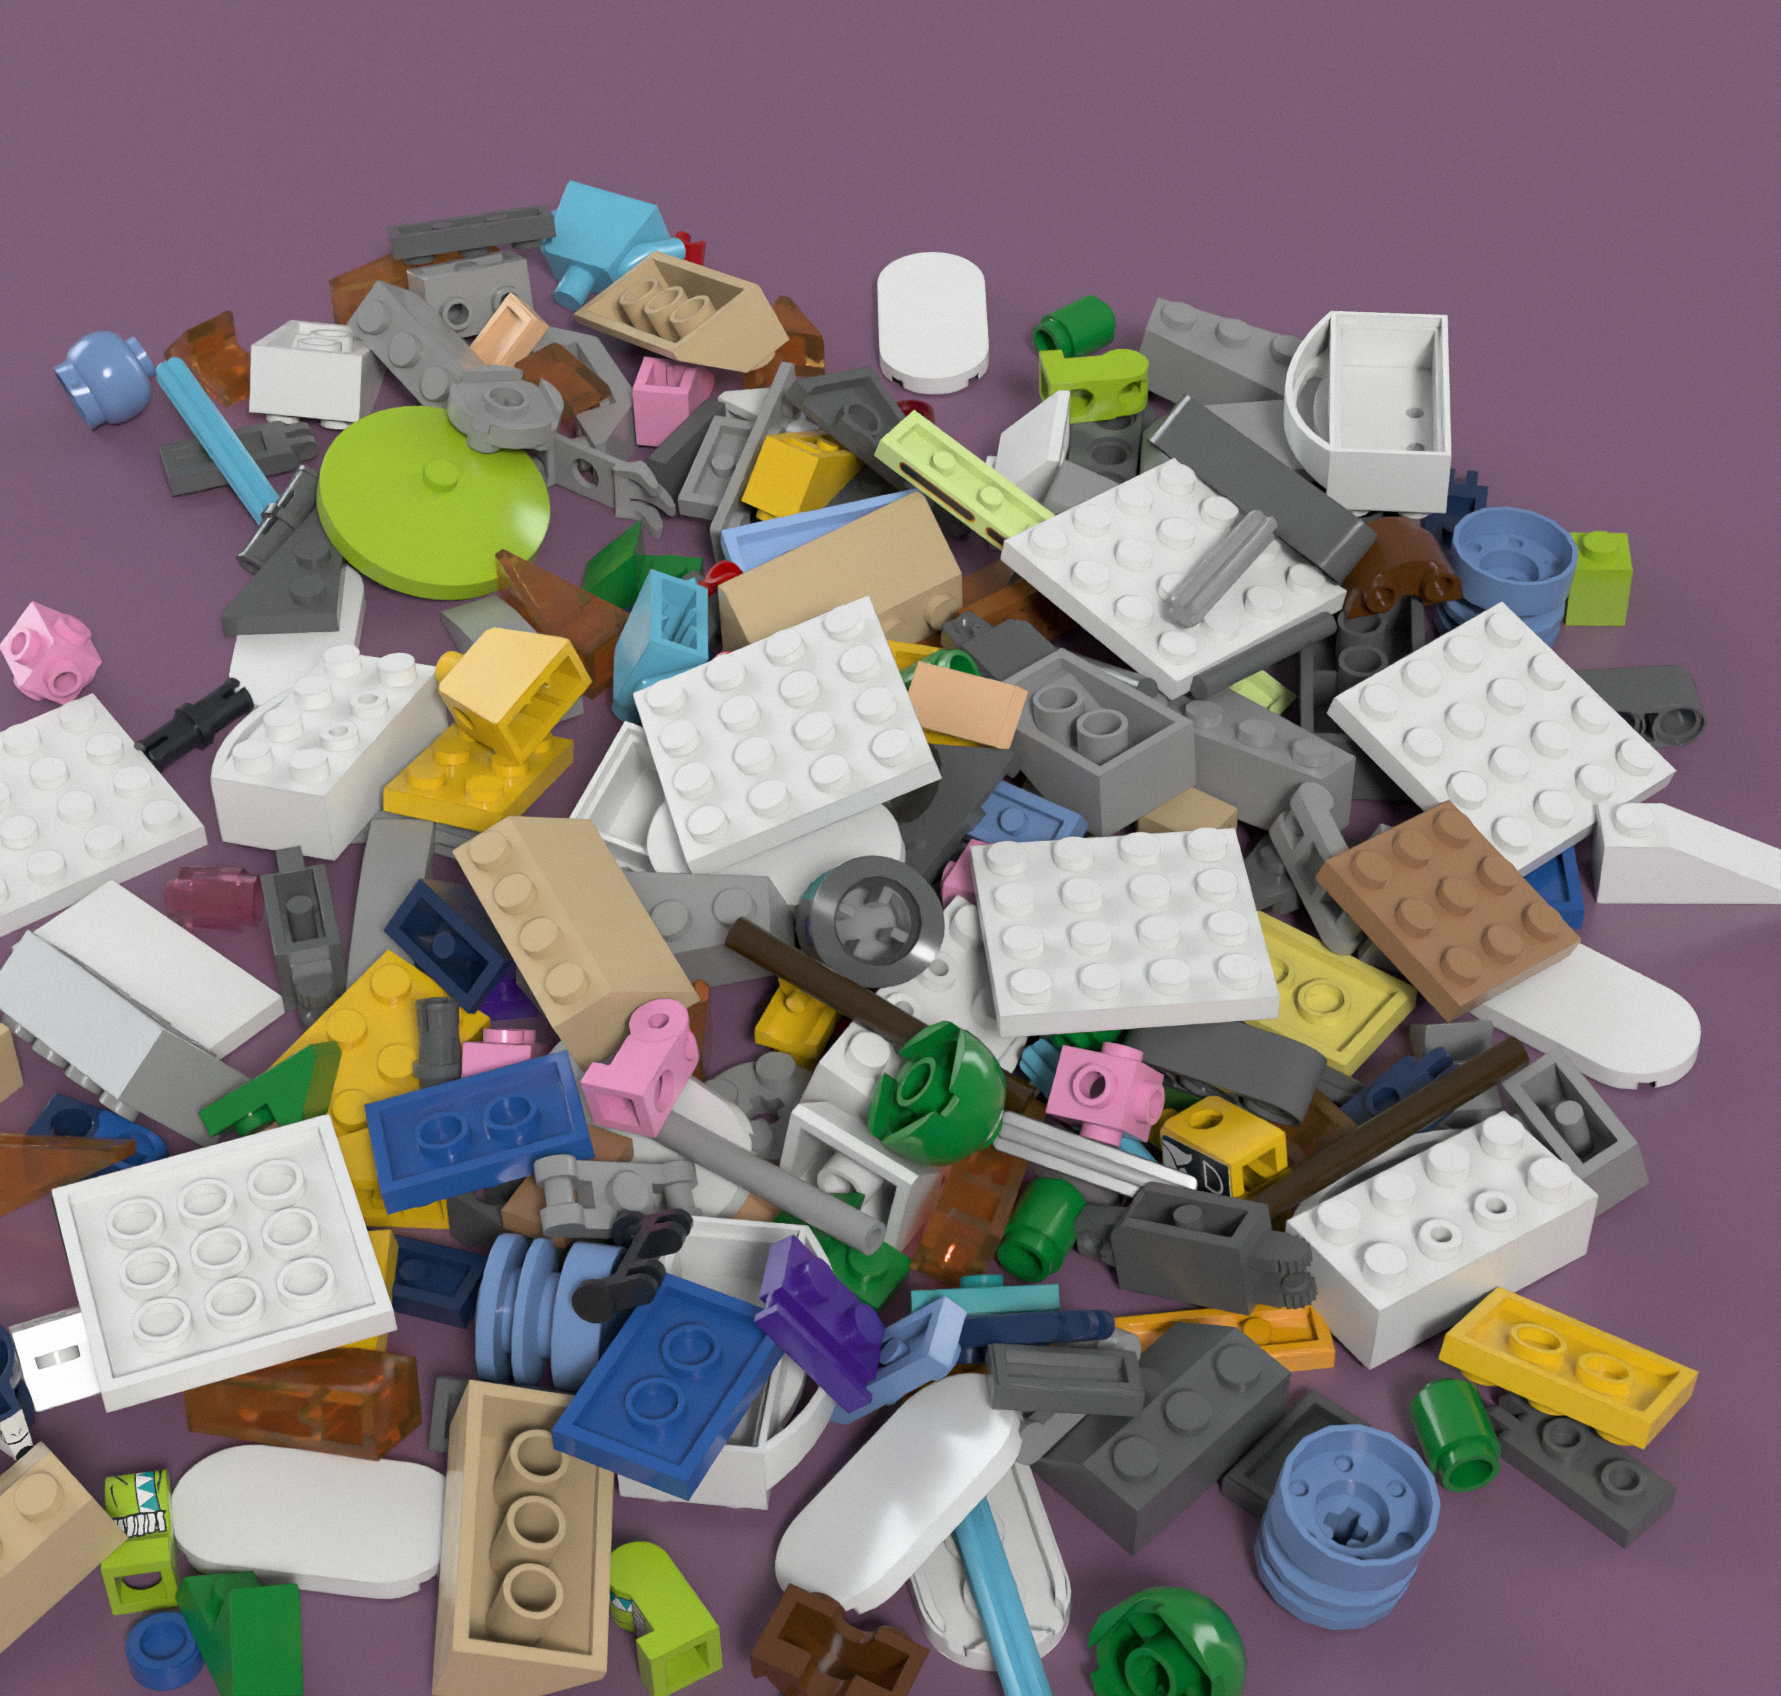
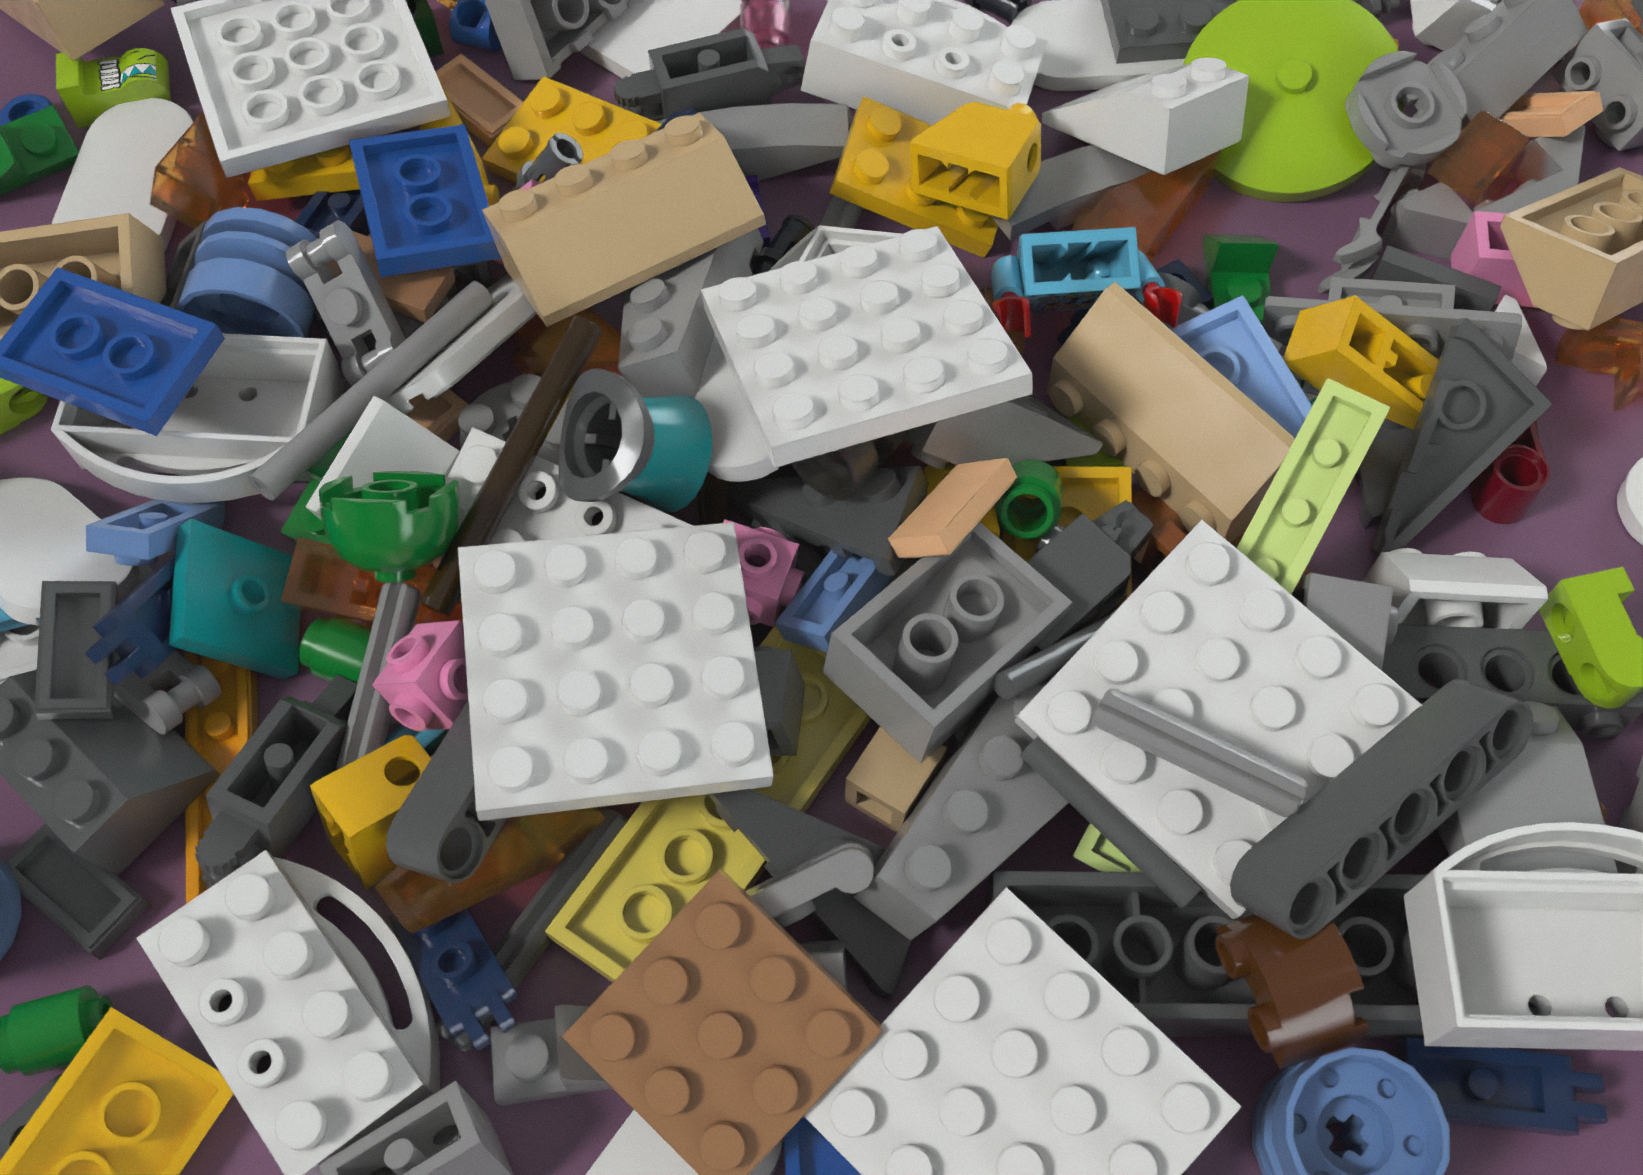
camera: 85 degrees right, 20 degrees up
(285, 1093) = (496, 88): green slope -> none
(451, 581) = (1161, 116): none -> white slope
(640, 1270) = (258, 318): black piece -> none
(646, 1072) = (459, 295): bright pink leg -> none
(820, 1323) = (148, 445): dark purple plate -> none
(1390, 1127) = (392, 957): dark brown piece -> none

